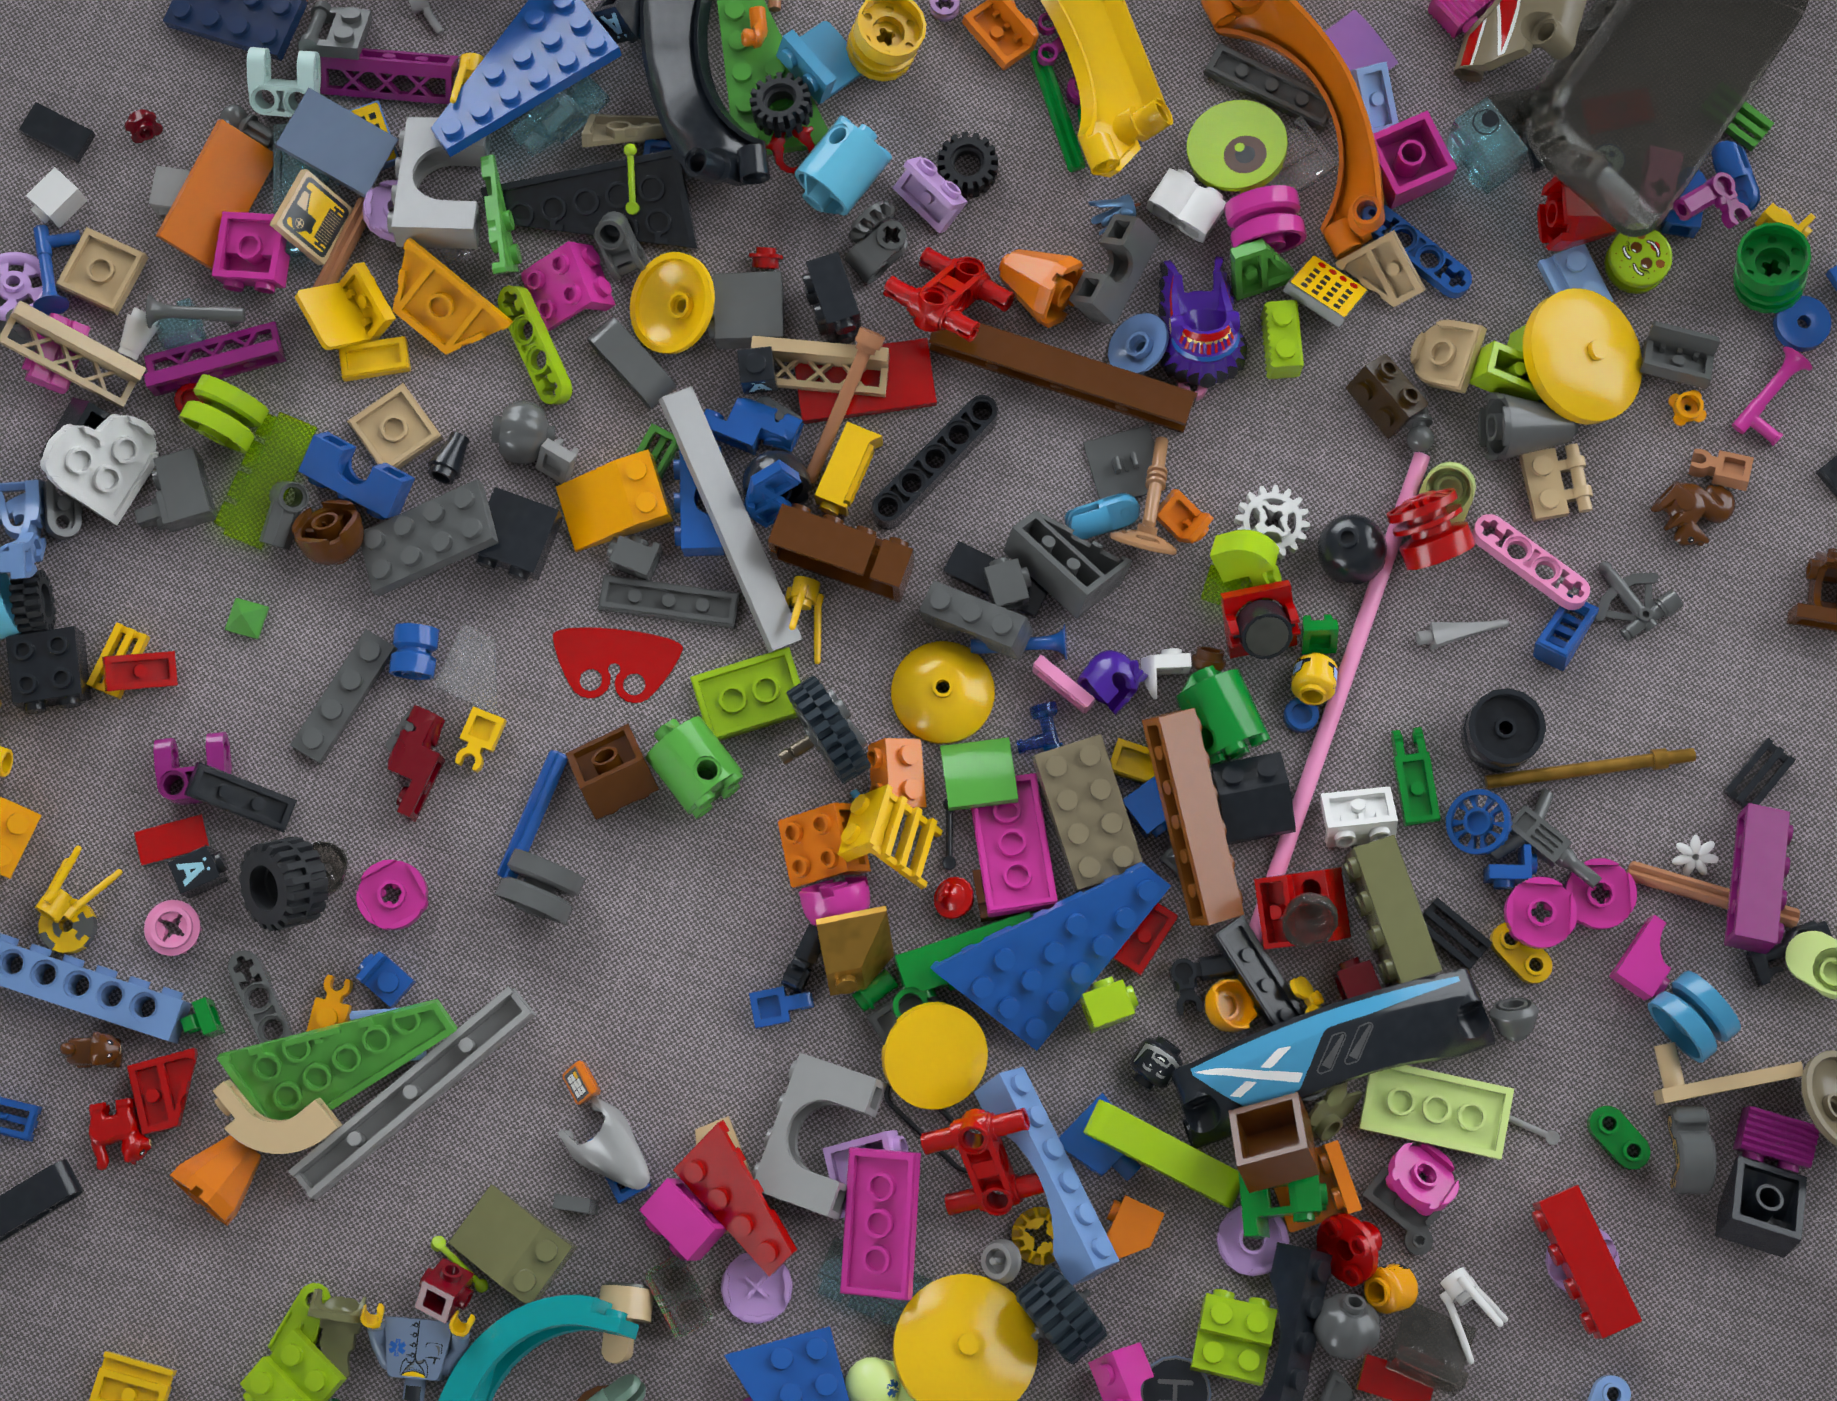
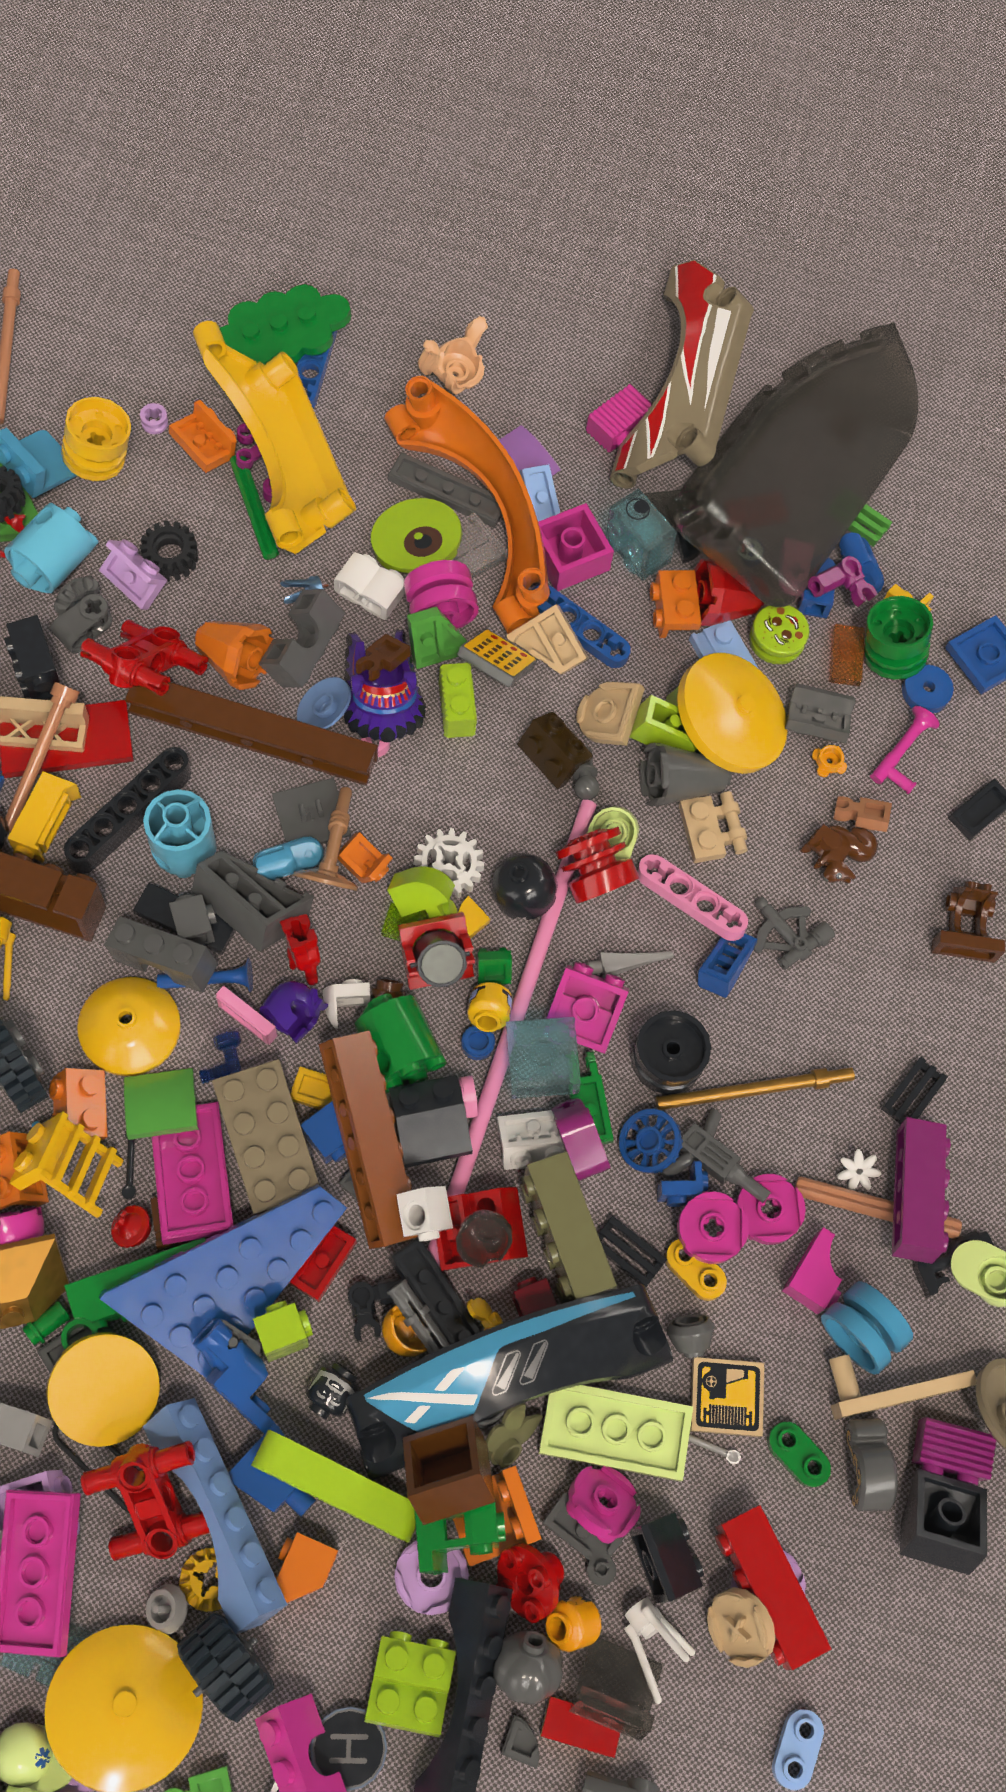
camera: 15 degrees left, 10 degrees down
(992, 490) = (179, 831): none -> medium azure cylinder
(1063, 1041) = (237, 1369): none -> blue plate
(1121, 614) = (302, 946): none -> red animal
(1204, 292) = (383, 654): none -> reddish brown plate
(1237, 889) = (424, 1212): none -> white brick
(1242, 995) = (416, 1318): none -> dark grey pin
(1293, 771) = (469, 1096): none -> bright pink tile
(1298, 579) = (474, 915): none -> yellow tile
(1369, 735) = (542, 1057): none -> clear light blue brick
(1407, 819) = (580, 1138): none -> magenta piece
(1415, 680) = (592, 1003): none -> dark pink plate
(1483, 1231) = (667, 1558): none -> black slope
(1523, 223) = (675, 601): none -> orange bracket
(1549, 1079) = (727, 1397): none -> tile
(1554, 1297) = (741, 1627): none -> tan tile
(1713, 283) = (847, 655): none -> clear orange plate

